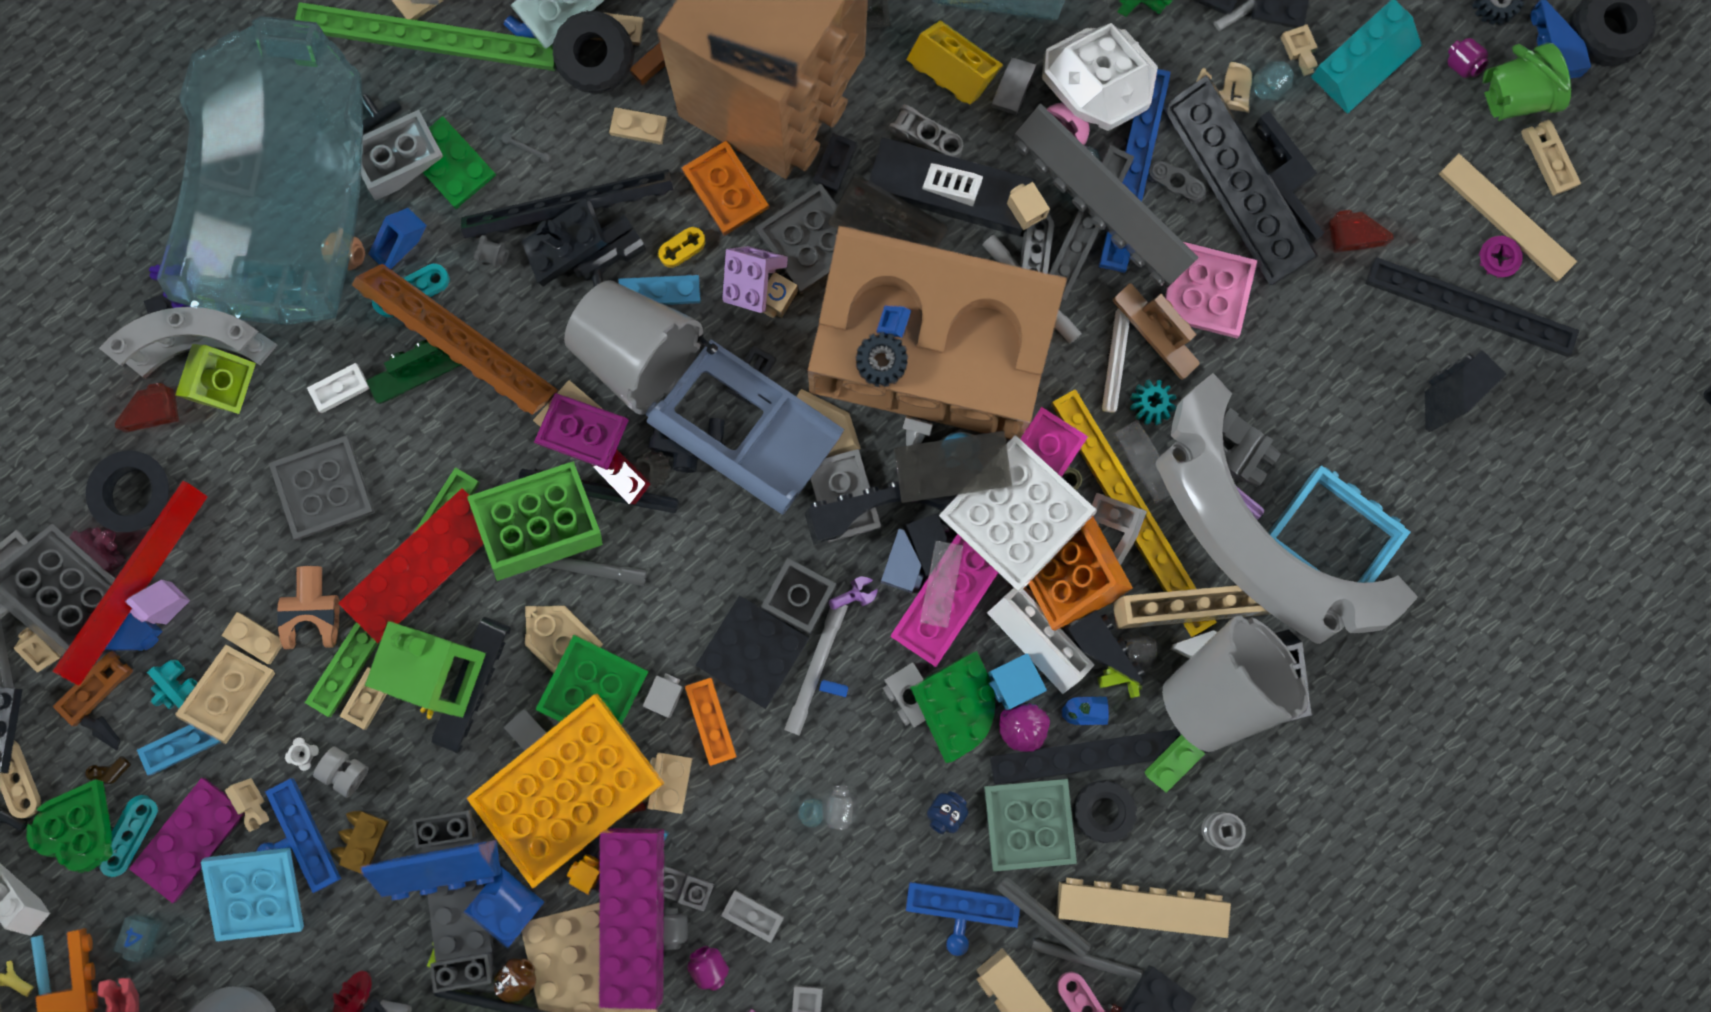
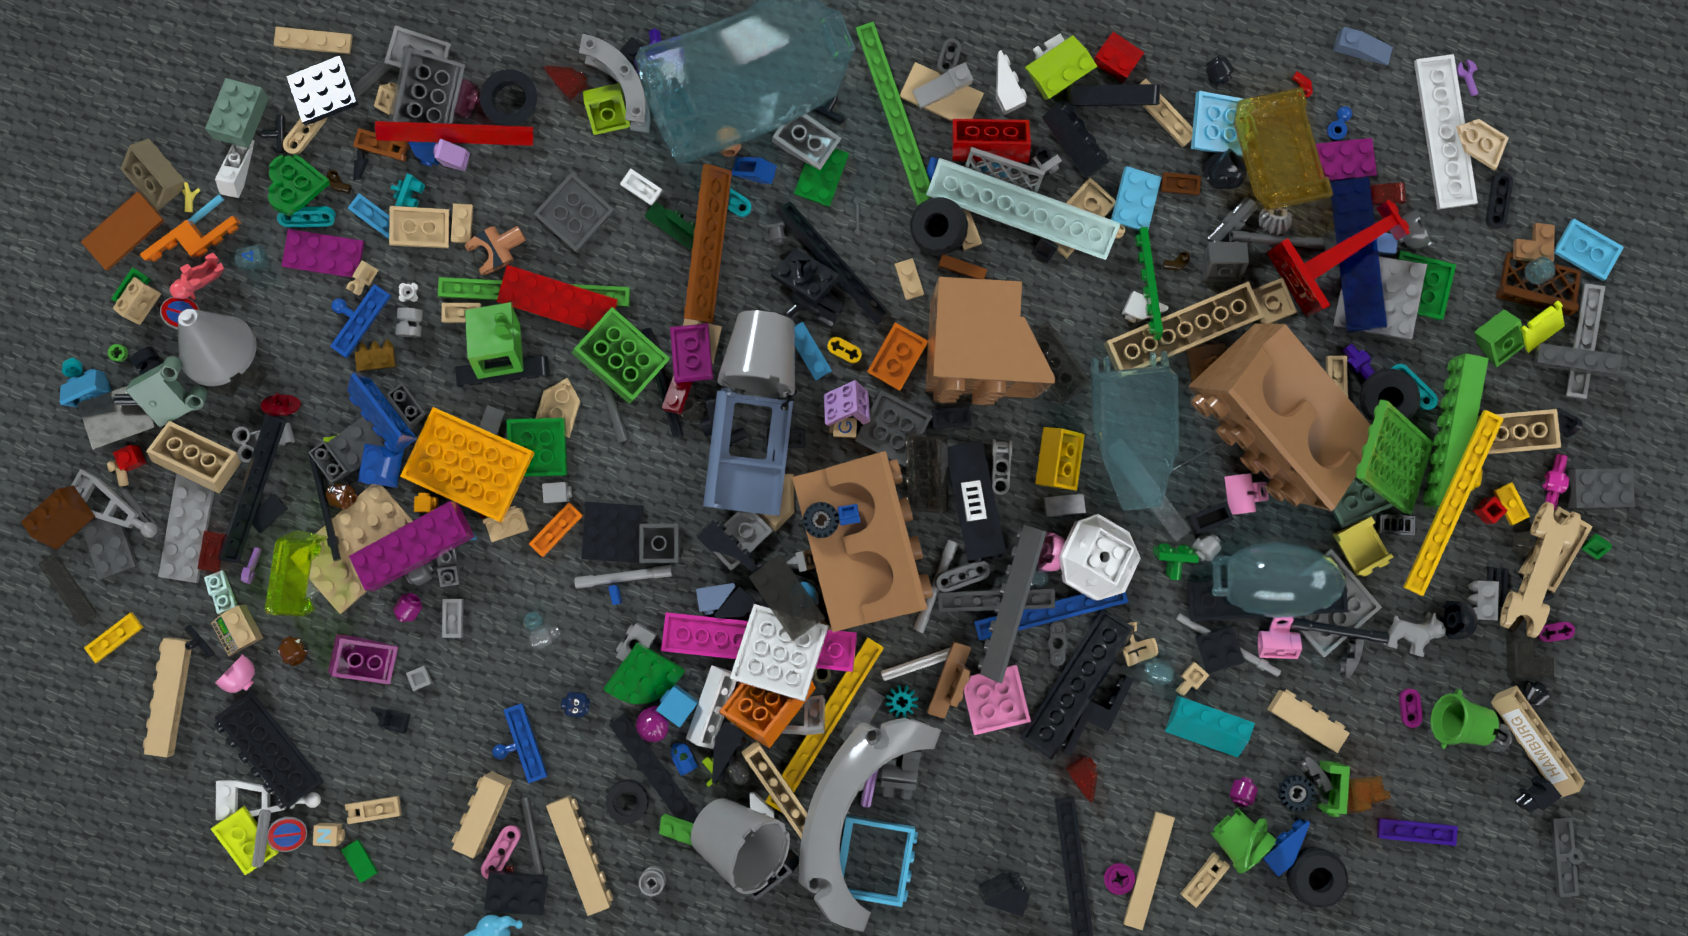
camera: 65 degrees right, 5 degrees up
(252, 894) = (310, 311): medium azure plate -> none
(726, 56) = (946, 349): black window -> none
(854, 594) = (680, 576): medium lavender bar -> none
(941, 584) = (712, 628): clear plate -> none
(1027, 205) = (984, 556): tan brick -> none
(1030, 825) = (595, 759): sand green plate -> none
(1043, 917) = (542, 797): dark grey axle -> none

